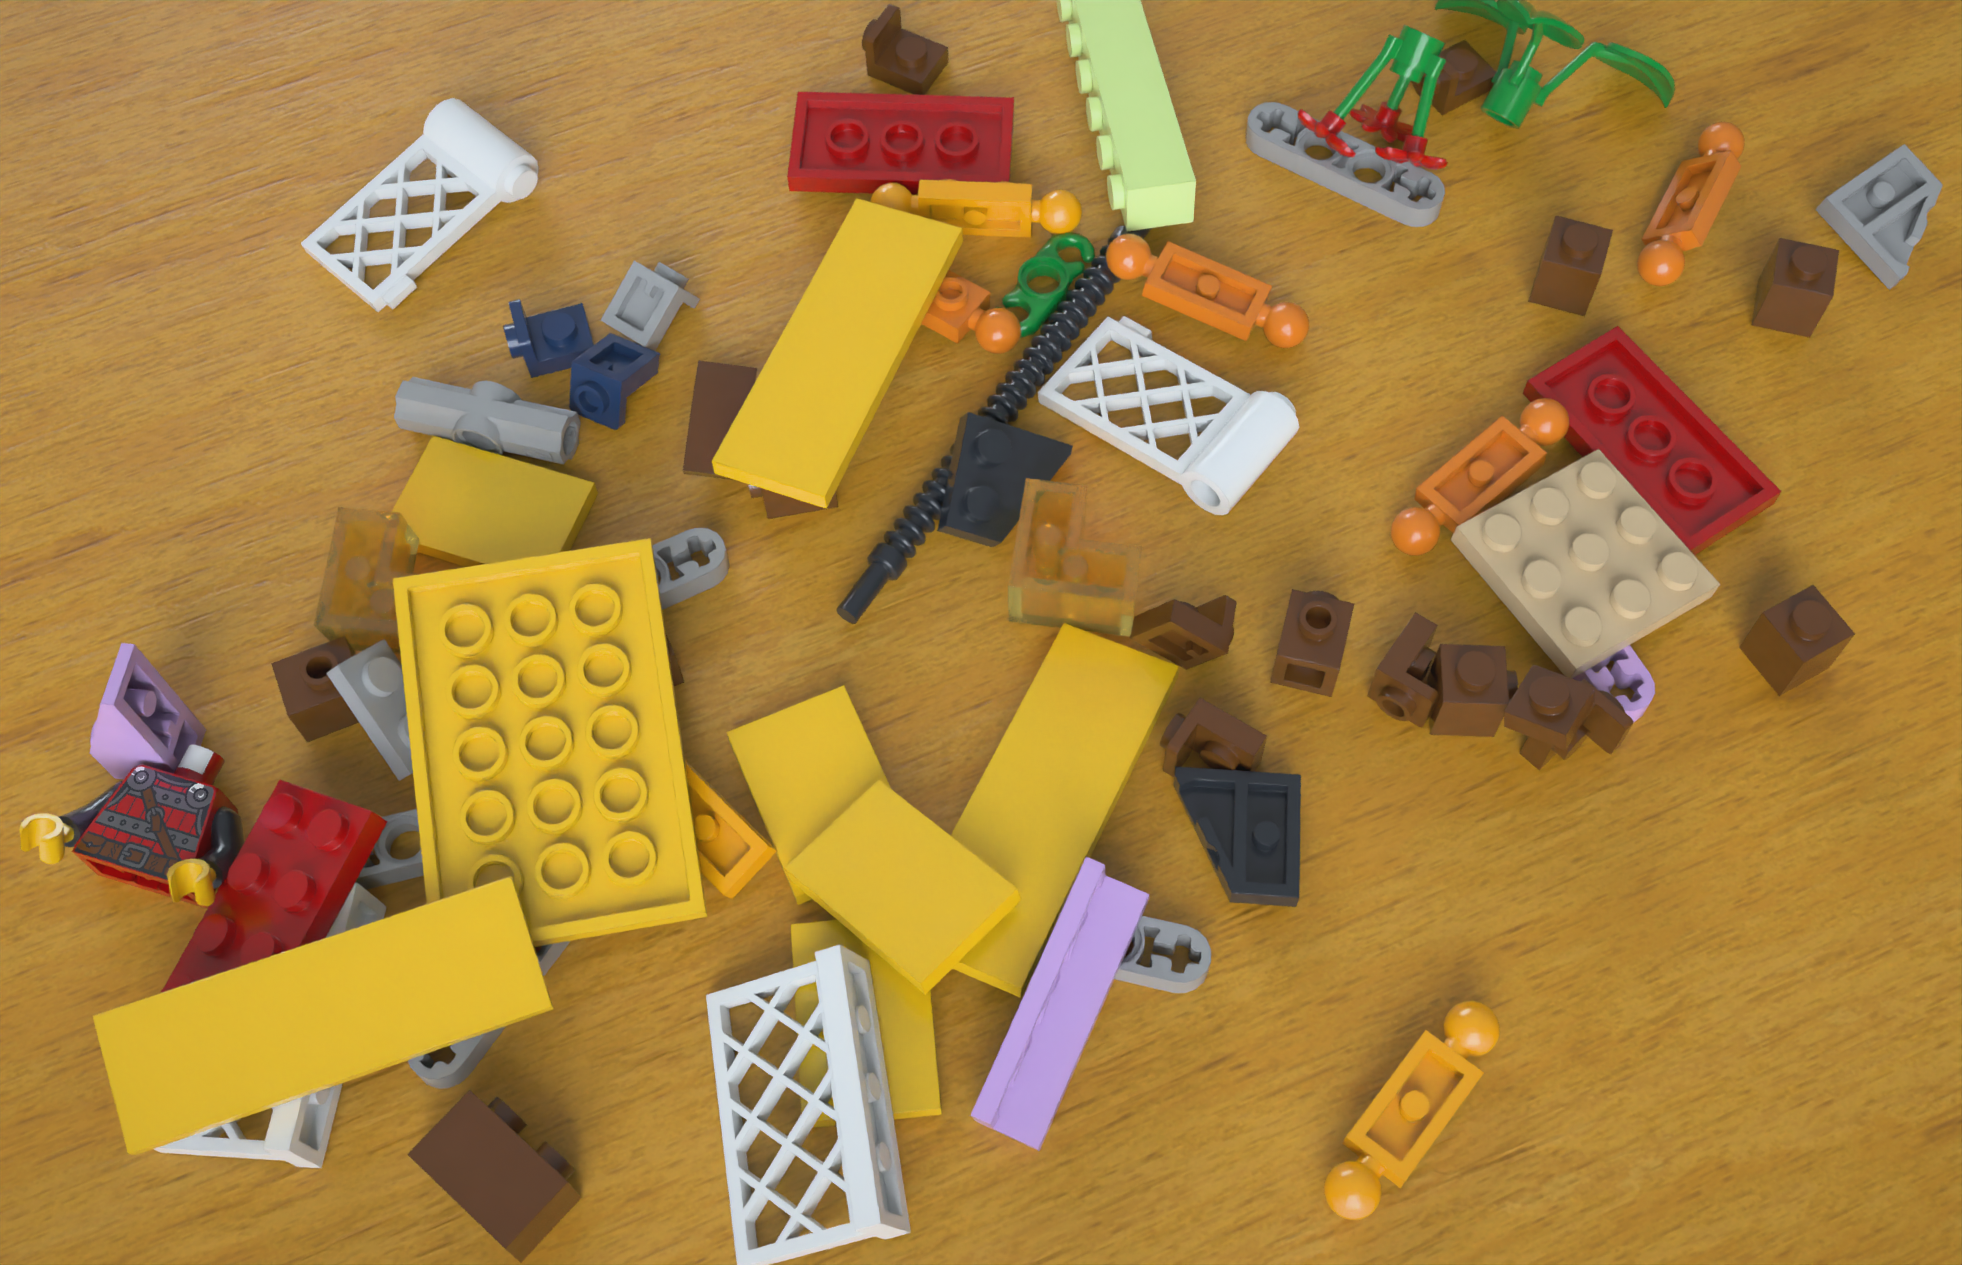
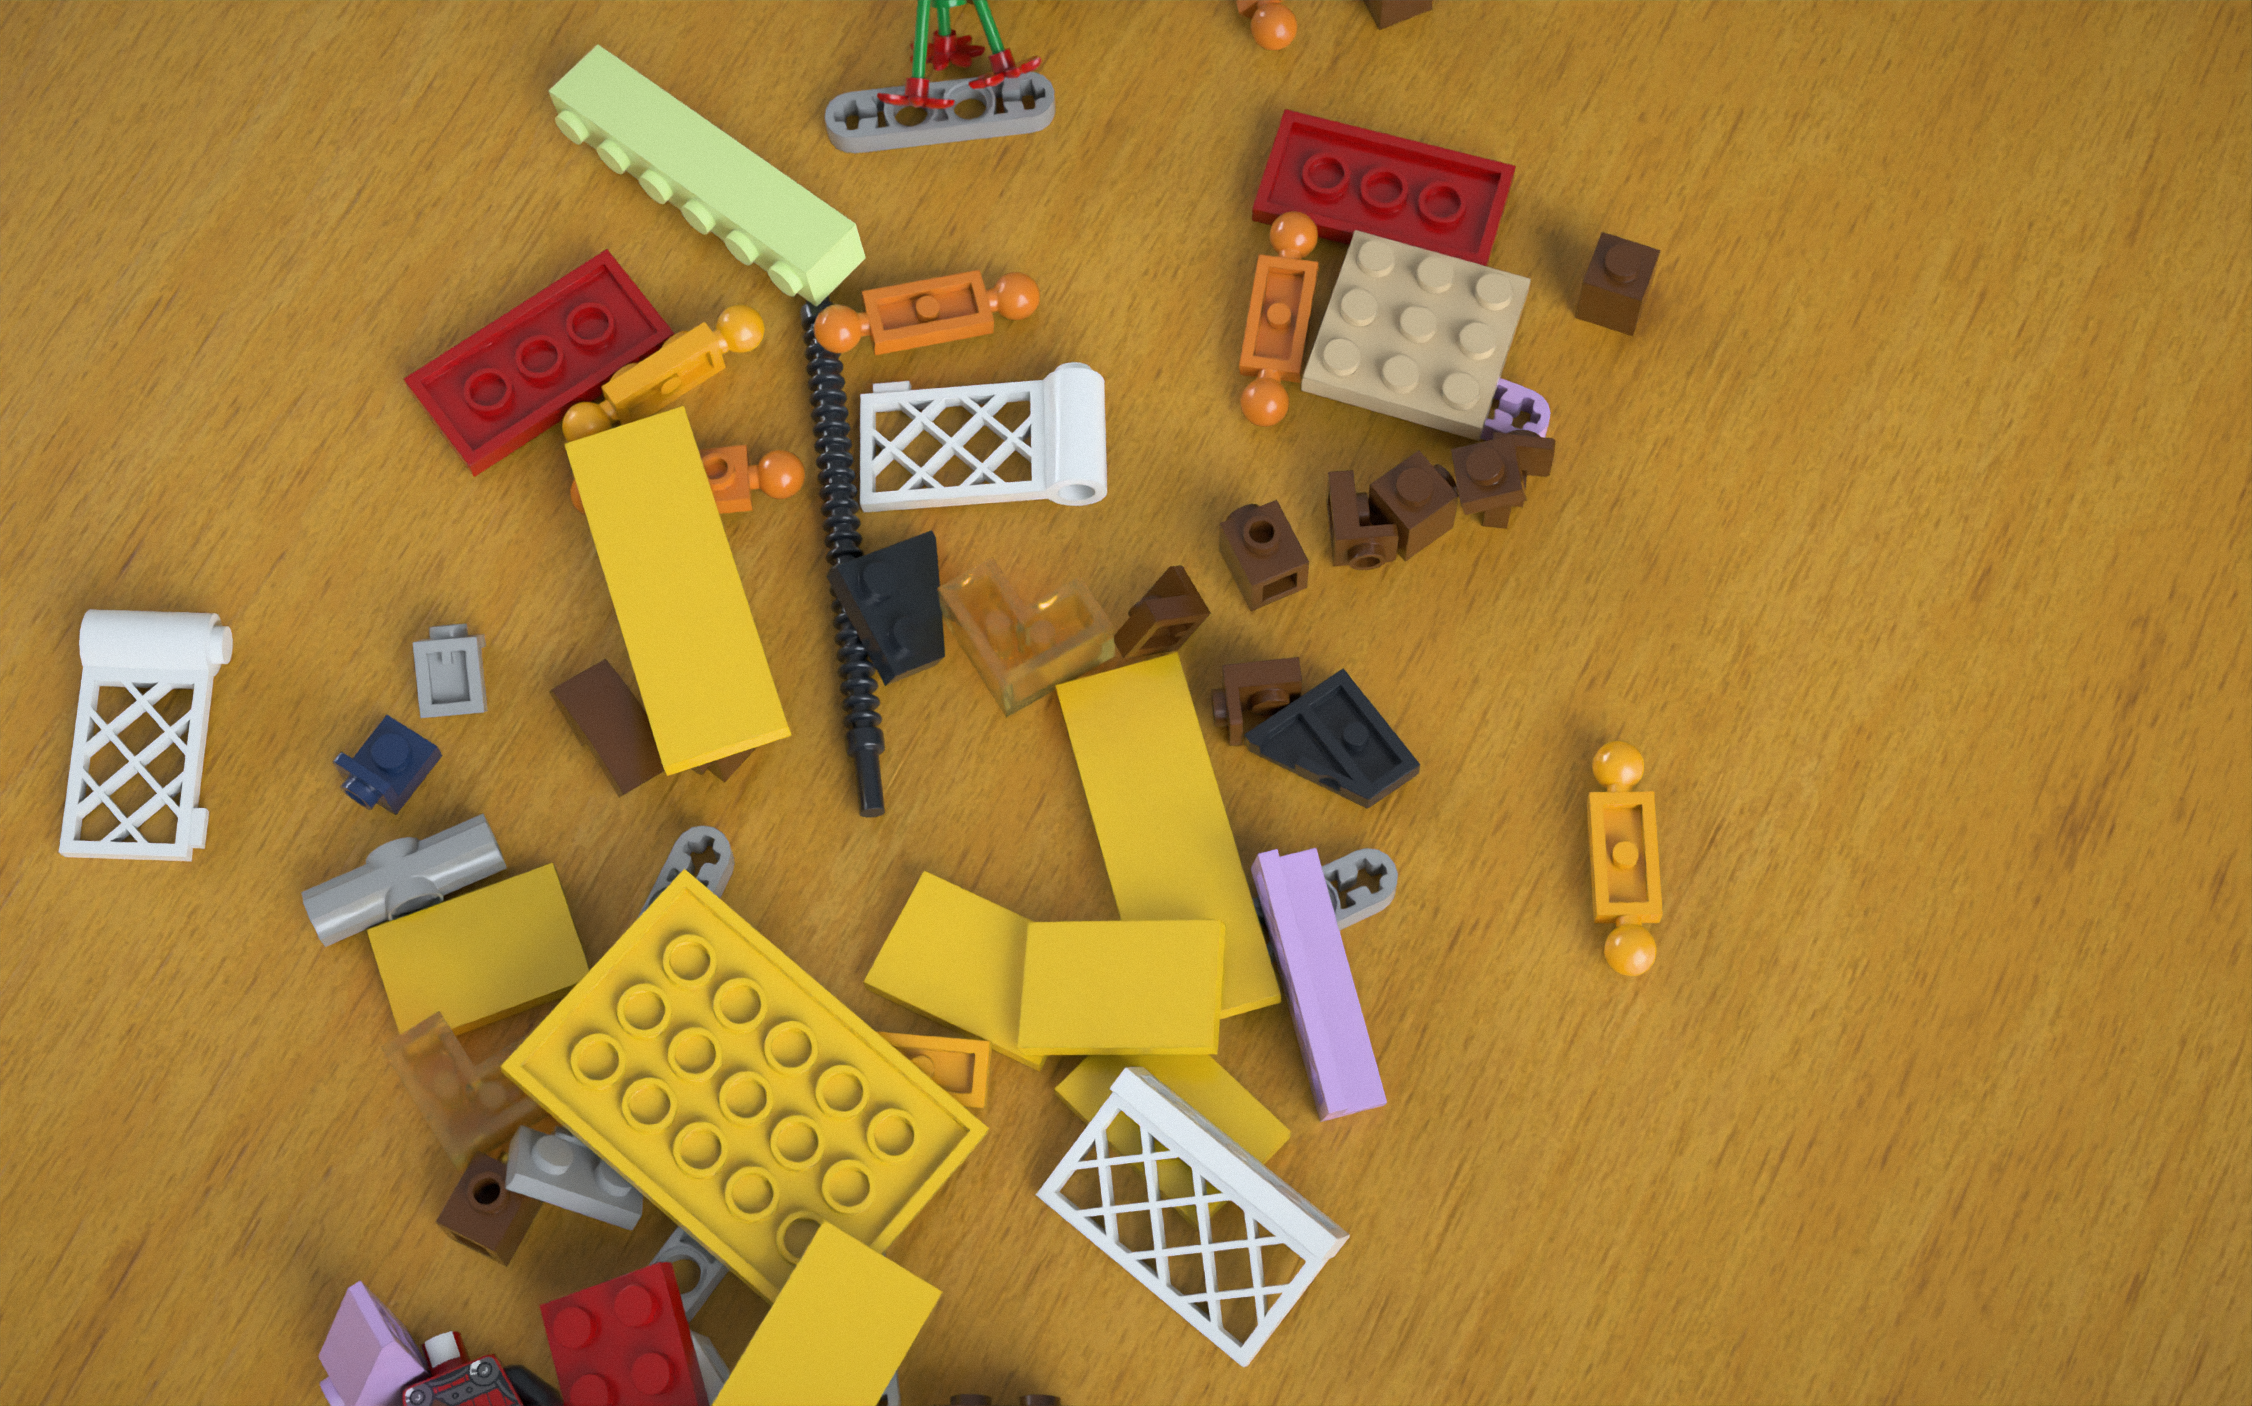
camera: 40 degrees left, 5 degrees up
(607, 376) = (479, 763): dark blue bracket -> none
(900, 55) = (462, 276): reddish brown bracket -> none
(1049, 264) = (768, 381): green piece -> none
(1570, 265) = (1206, 80): reddish brown brick -> none

